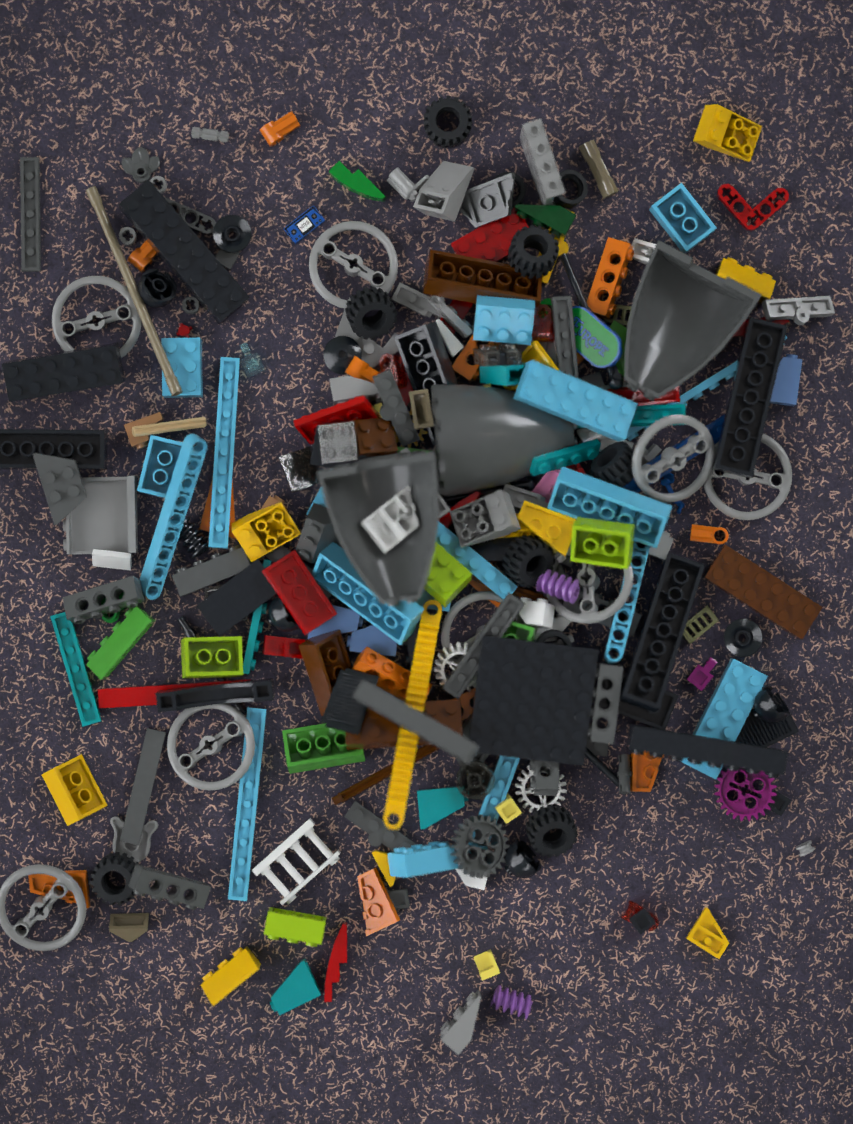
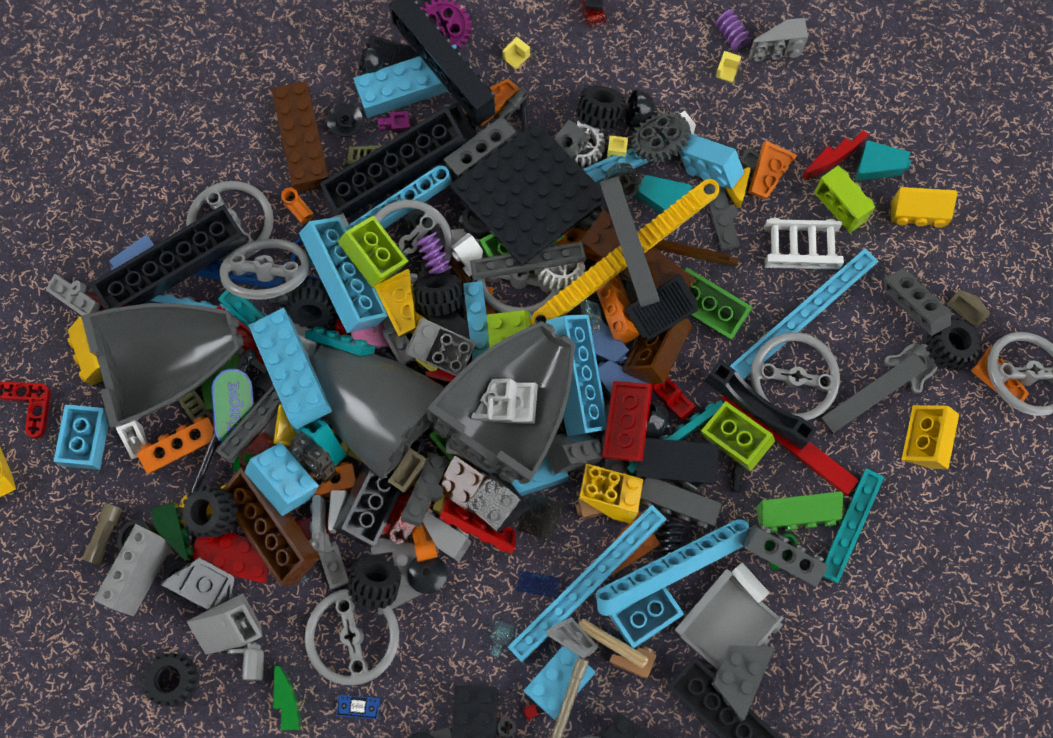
camera: 130 degrees left, 15 degrees down
(199, 404) = (572, 637): none -> light grey wing
(259, 421) = (538, 584): none -> clear blue plate
(402, 653) = (593, 311): none -> clear light blue plate
(665, 820) = (516, 53): none -> light yellow panel

